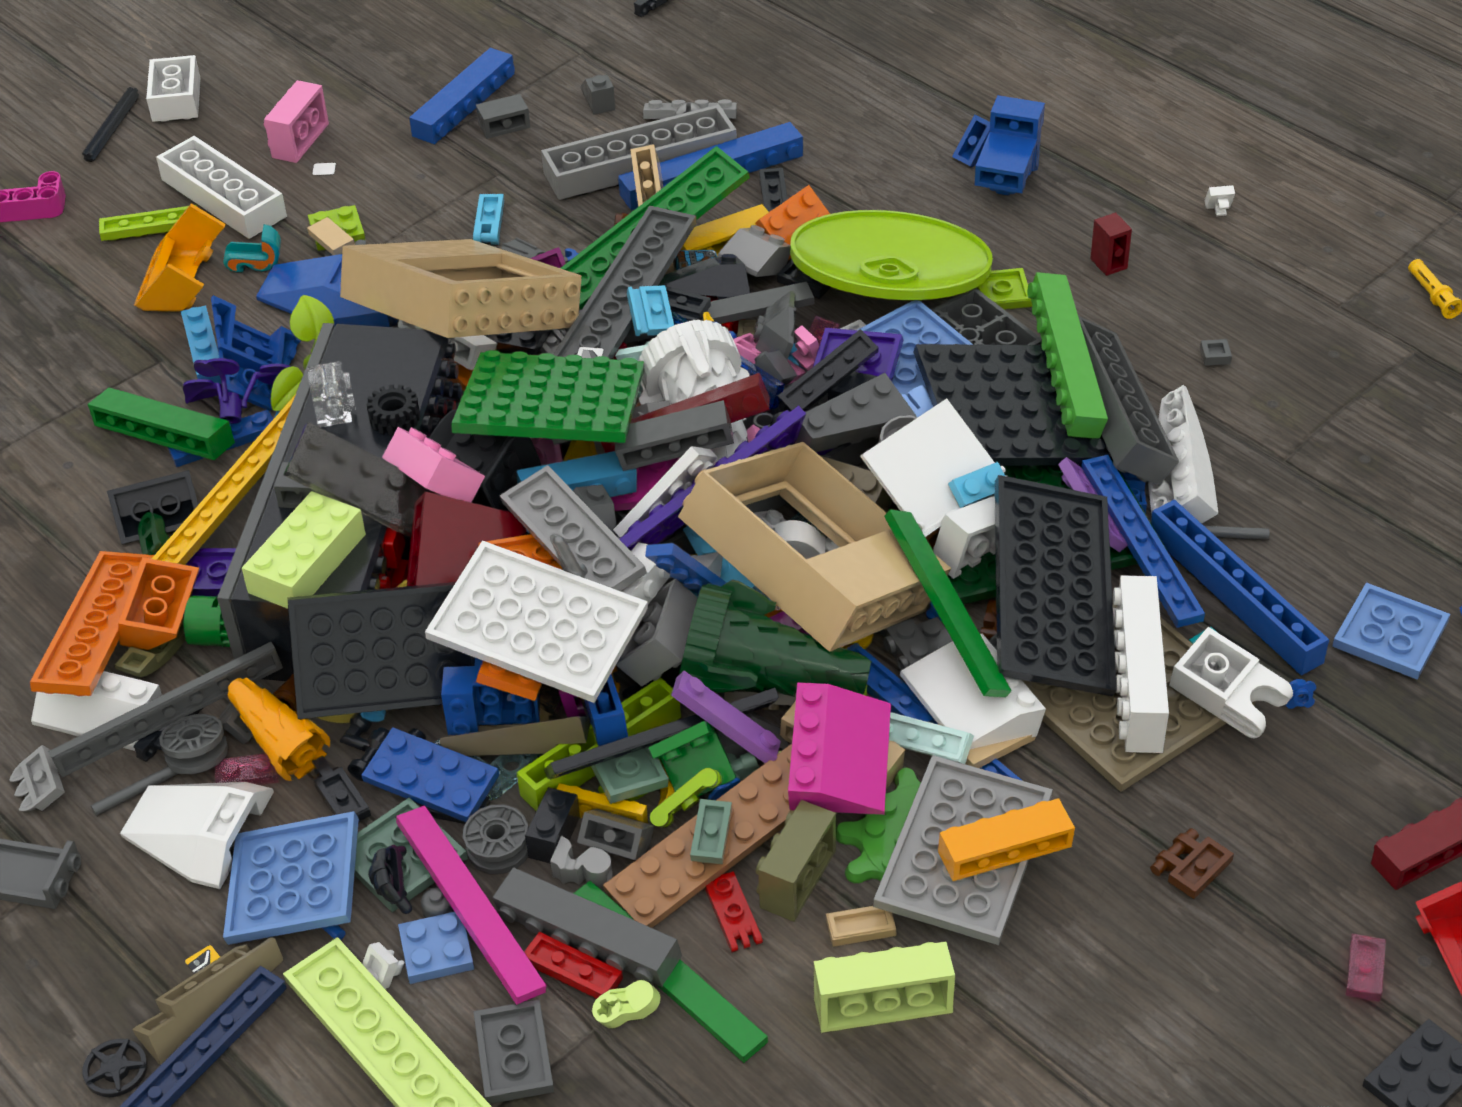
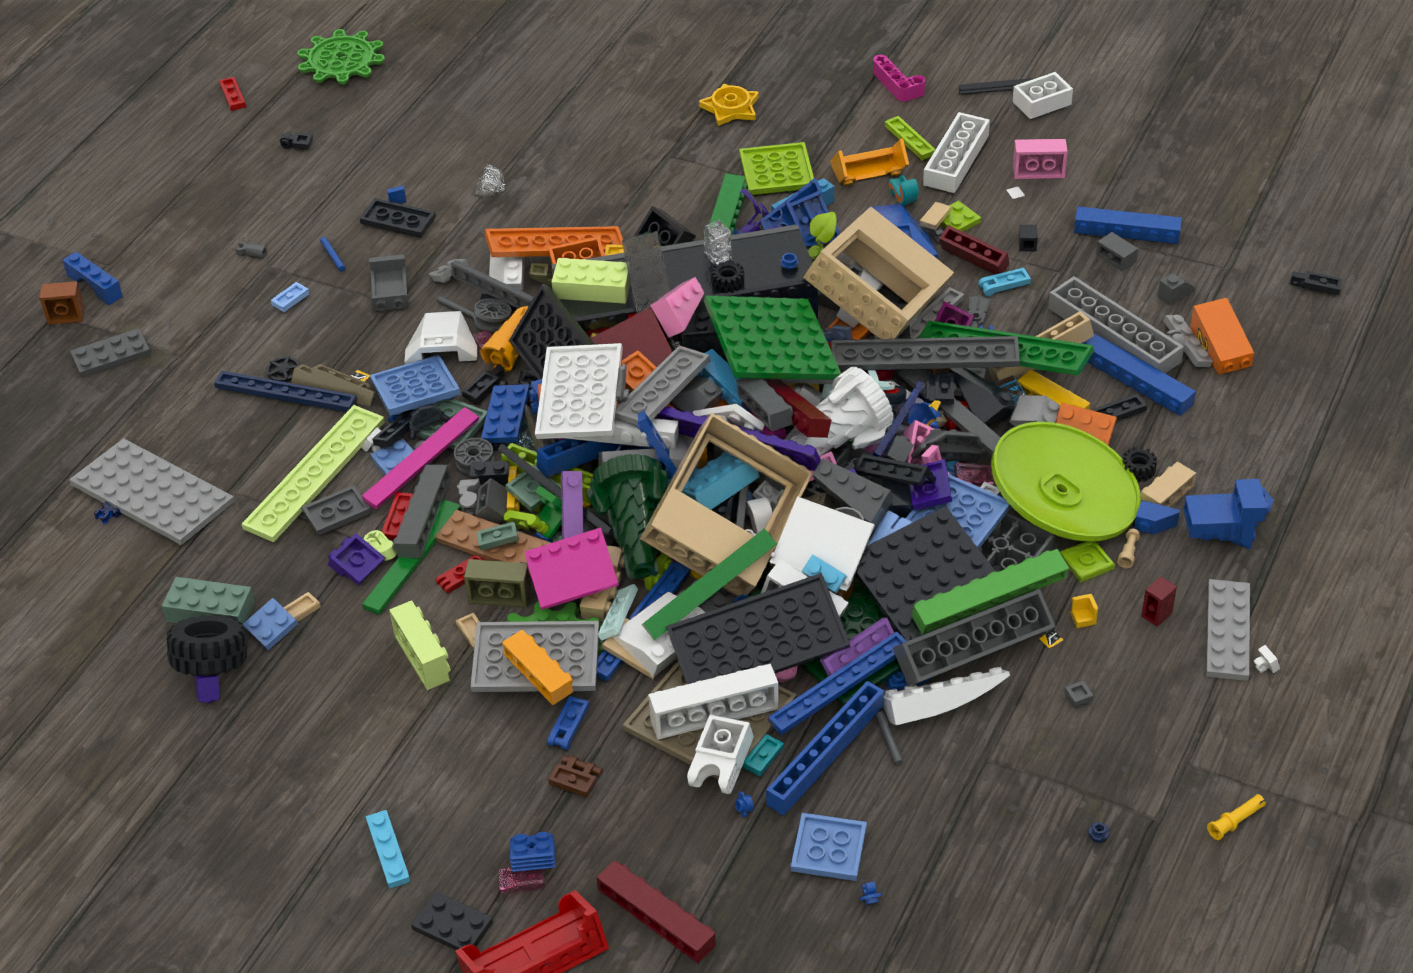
camera: 70 degrees right, 0 degrees up
(103, 356) = (776, 168): none -> lime plate
(382, 921) = (394, 430): none -> black plate
(402, 344) = (789, 261): none -> blue plate
(425, 176) = (1028, 237): none -> black brick
(425, 220) = (974, 250): none -> dark red brick
(586, 352) = (854, 355): sticker -> none
(644, 1043) = (355, 559): none -> dark purple plate
(650, 309) = (910, 369): medium azure plate -> none
(711, 77) = (1221, 336): none -> orange slope
(872, 198) = (1143, 457): none -> black tyre
(925, 191) = (1169, 486): none -> tan brick
(967, 212) = (1155, 518): none -> blue slope
(1018, 255) = (1126, 557): none -> tan piece
(1092, 305) = (1084, 610): none -> yellow panel
(1096, 851) = (568, 722): none -> blue plate
(1159, 216) = (1228, 630): none -> light grey plate
(1332, 938) = (532, 852): none -> blue brick
(1426, 397) = (1098, 836): none -> dark blue plate

